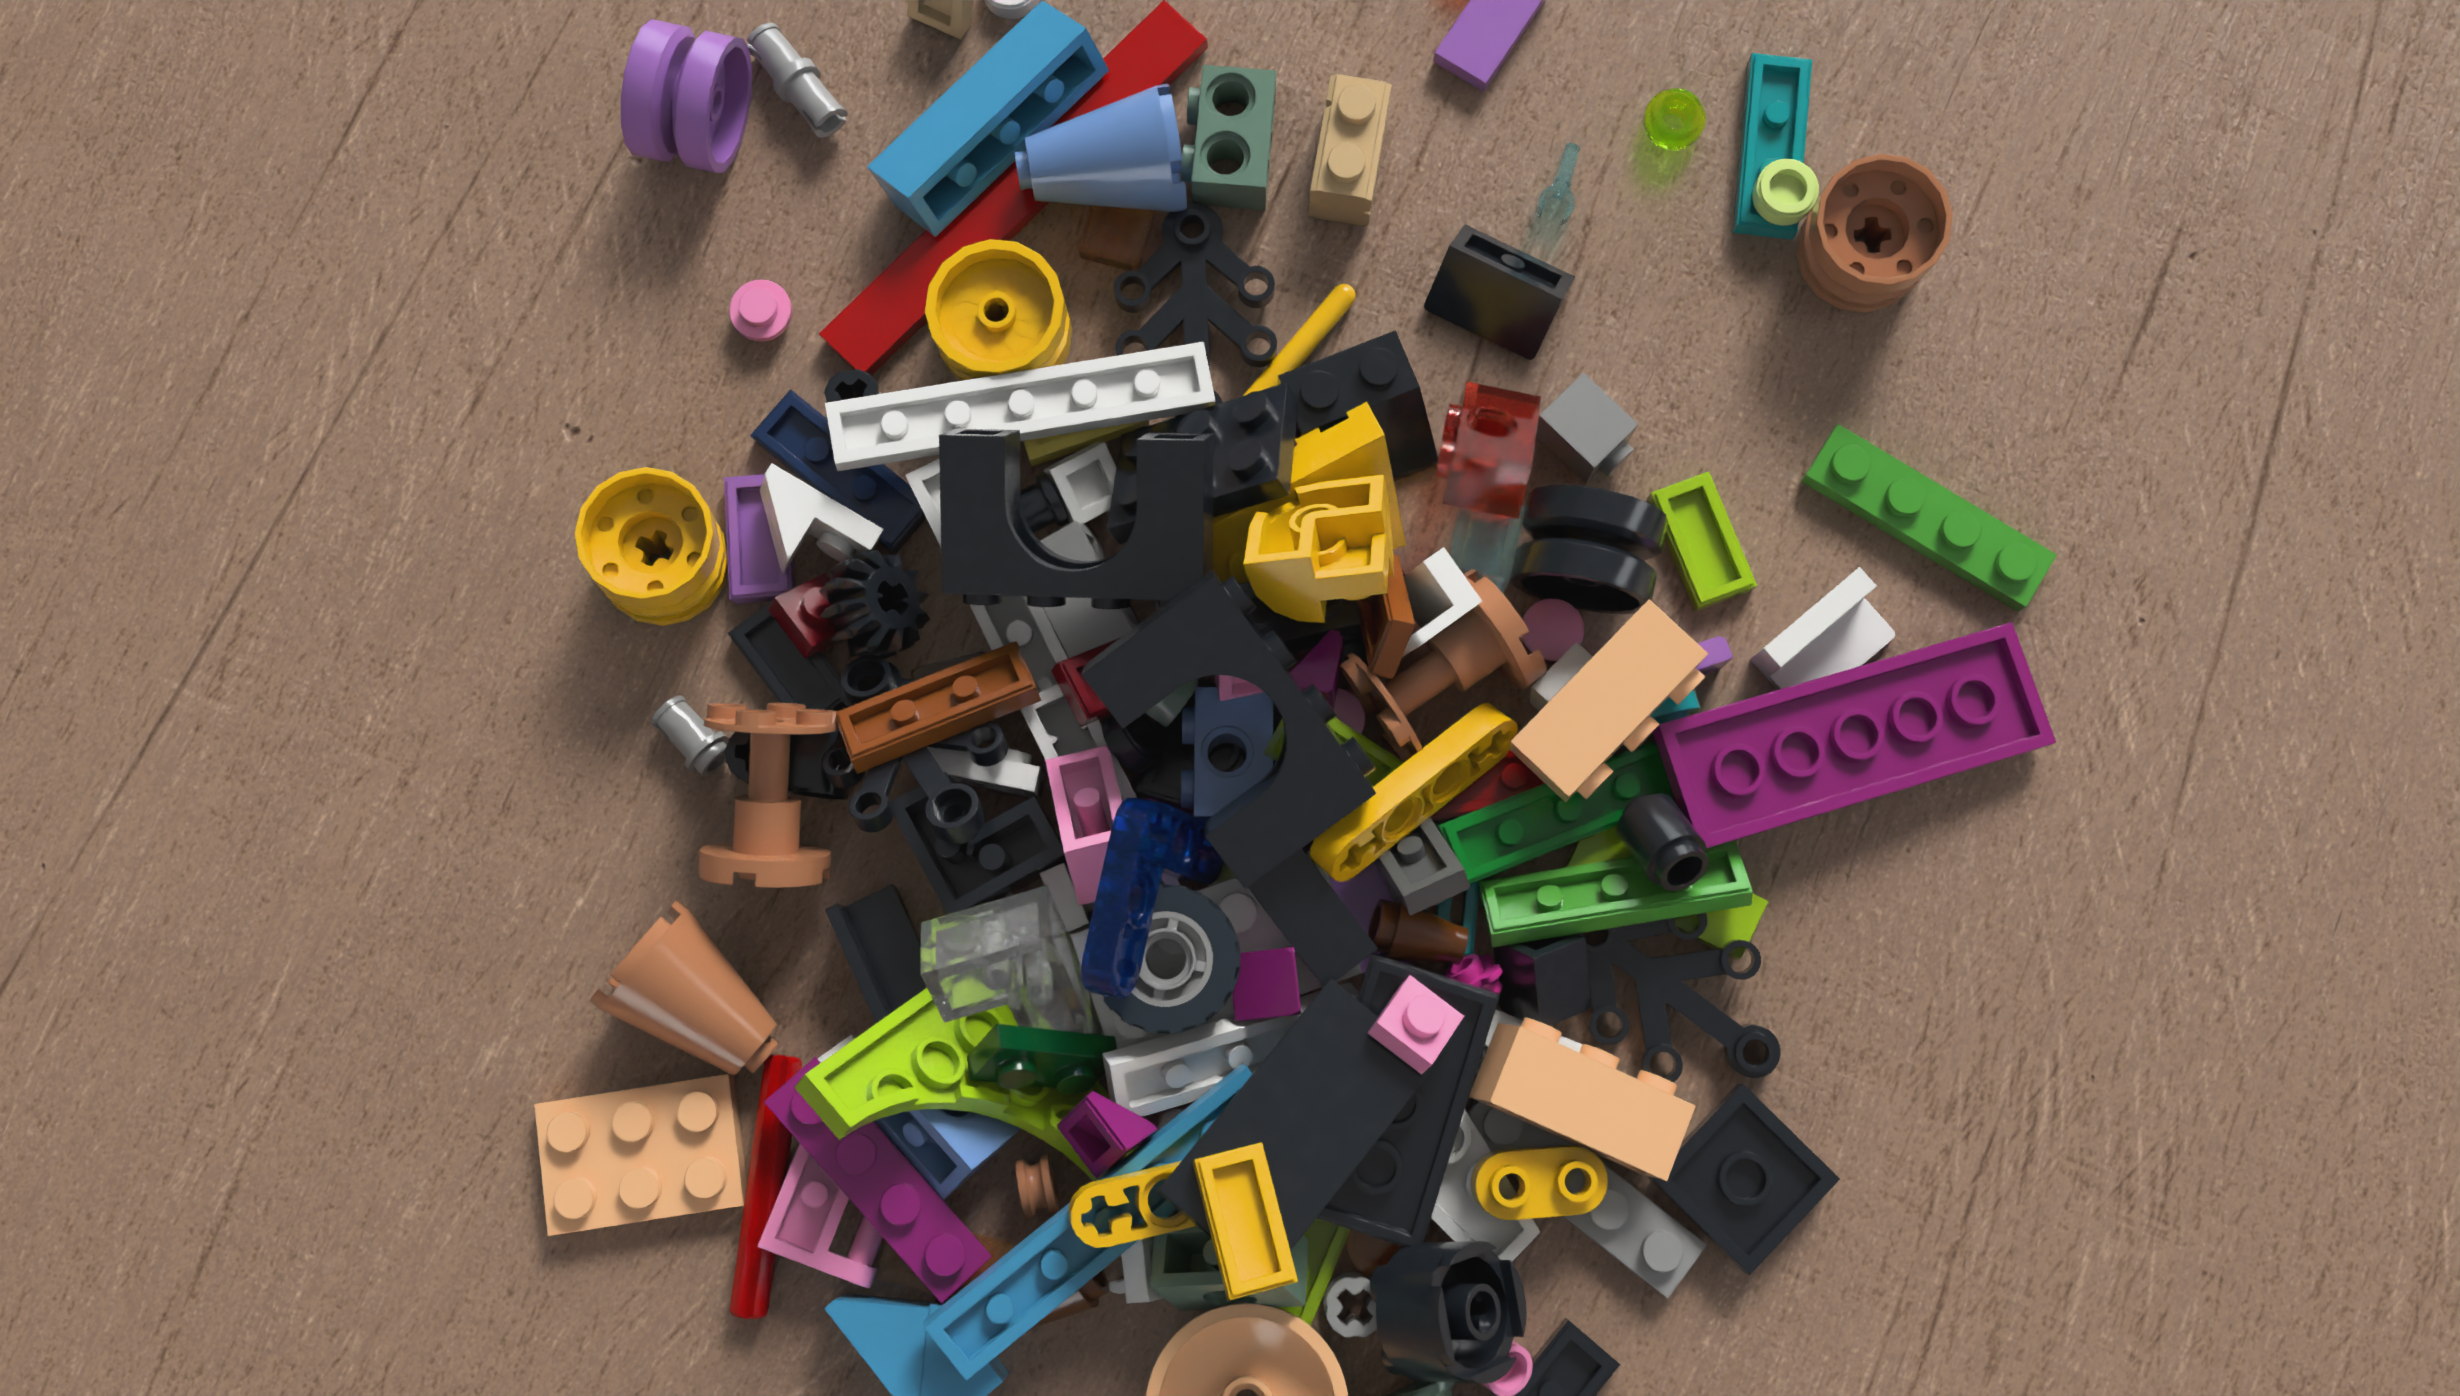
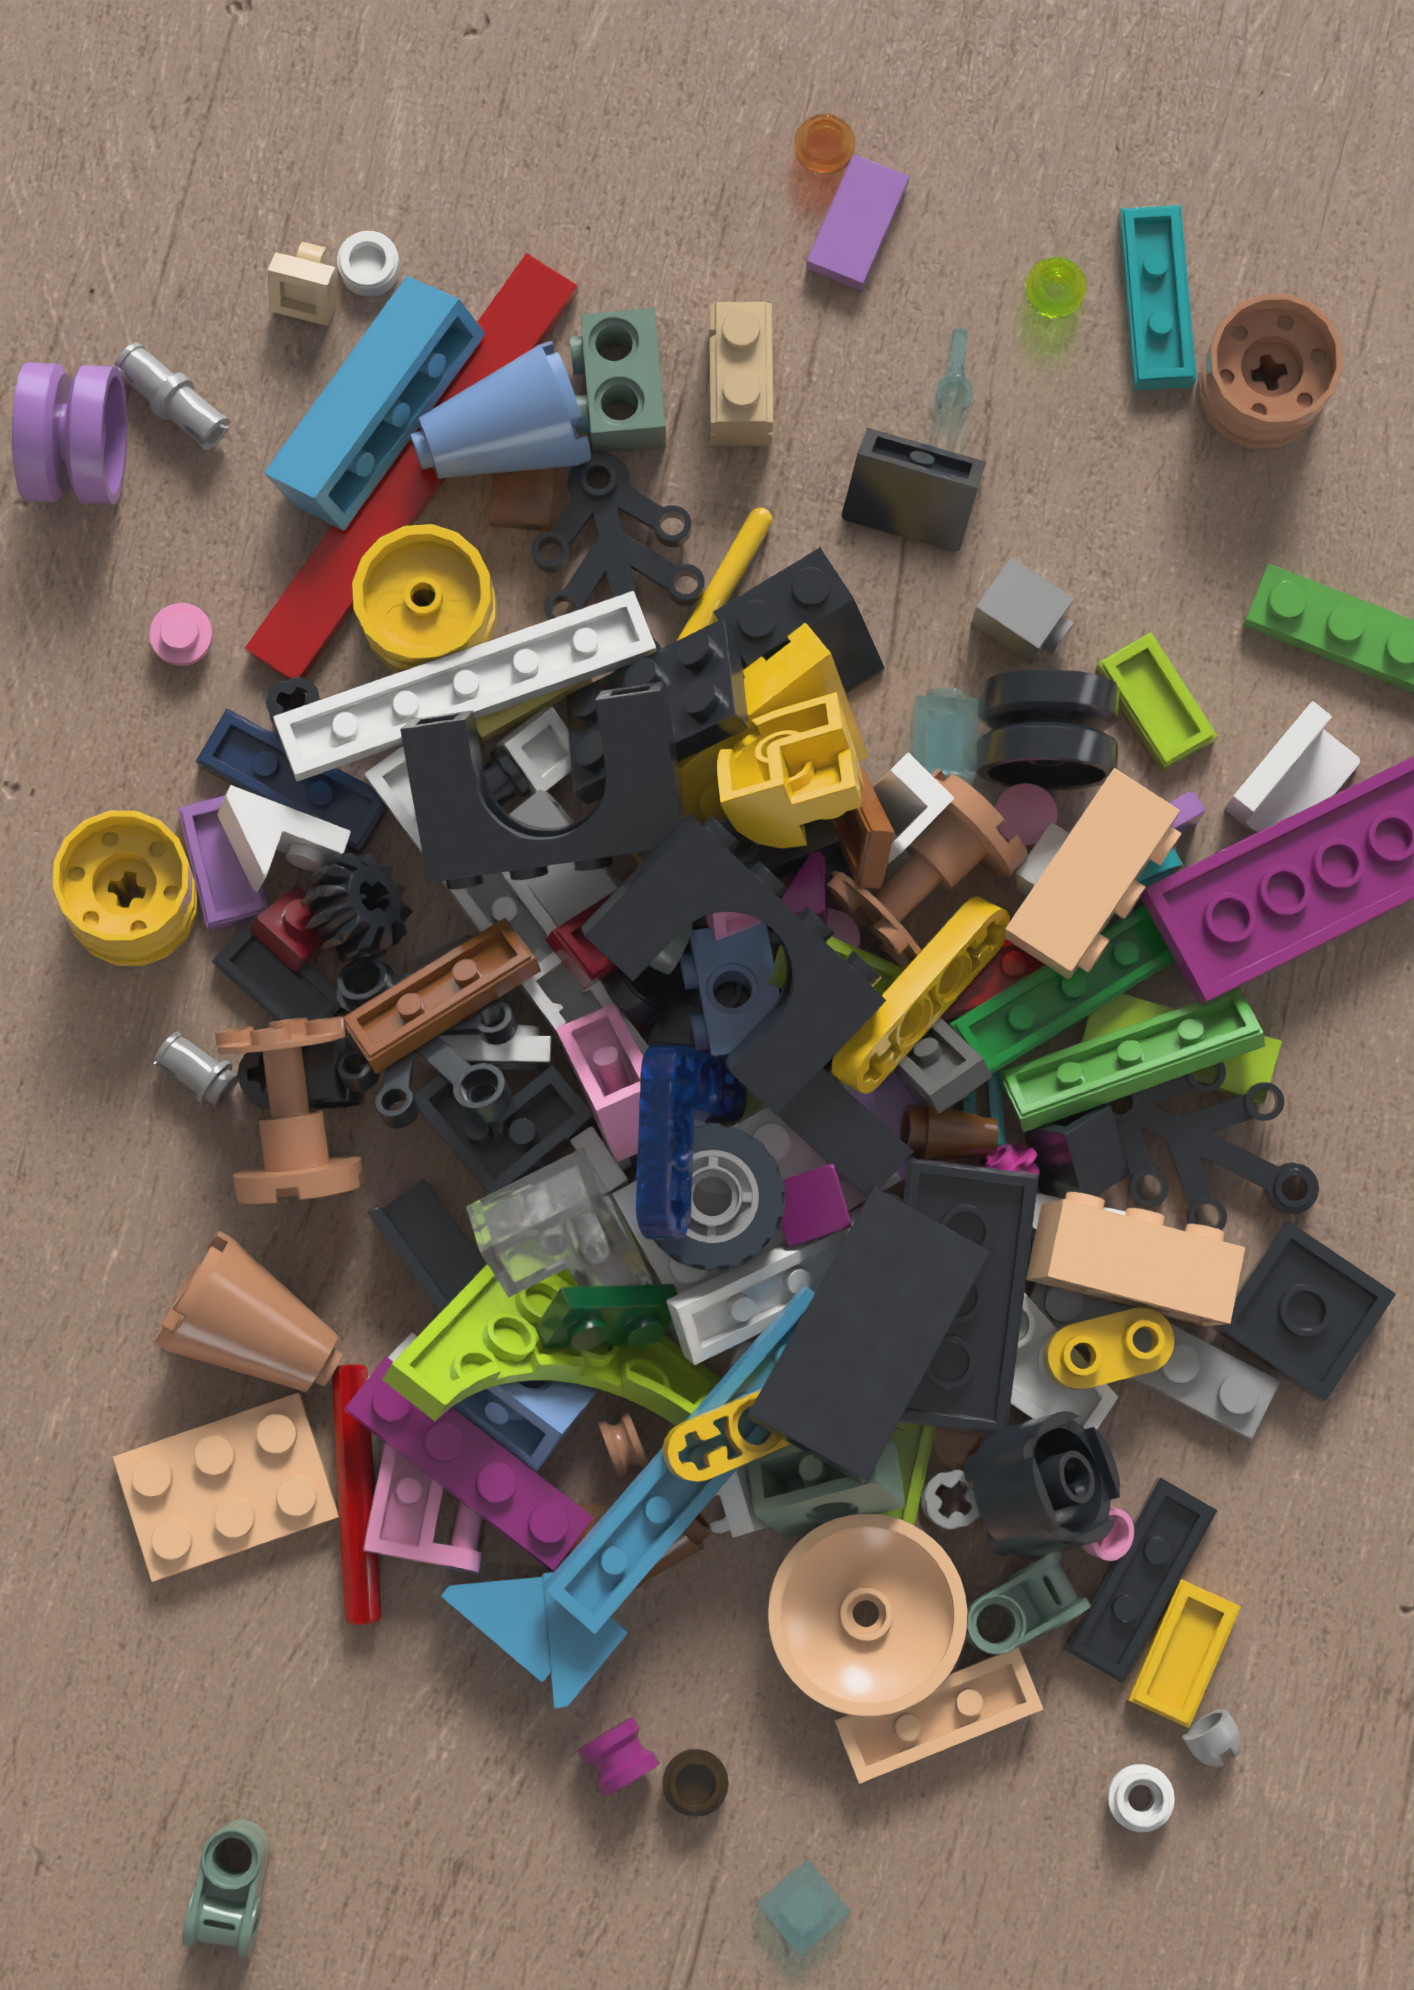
camera: 15 degrees left, 0 degrees up
(1103, 1132) = (681, 1375): magenta slope -> none
(1244, 1221) = (836, 1427): yellow tile -> none
(1415, 1024) = (963, 1216): bright pink plate -> none
(1488, 449) = (932, 648): clear red brick -> none
(1663, 841) = (1169, 999): black brick -> none
(1785, 192) = (1177, 343): yellowish green tile -> none

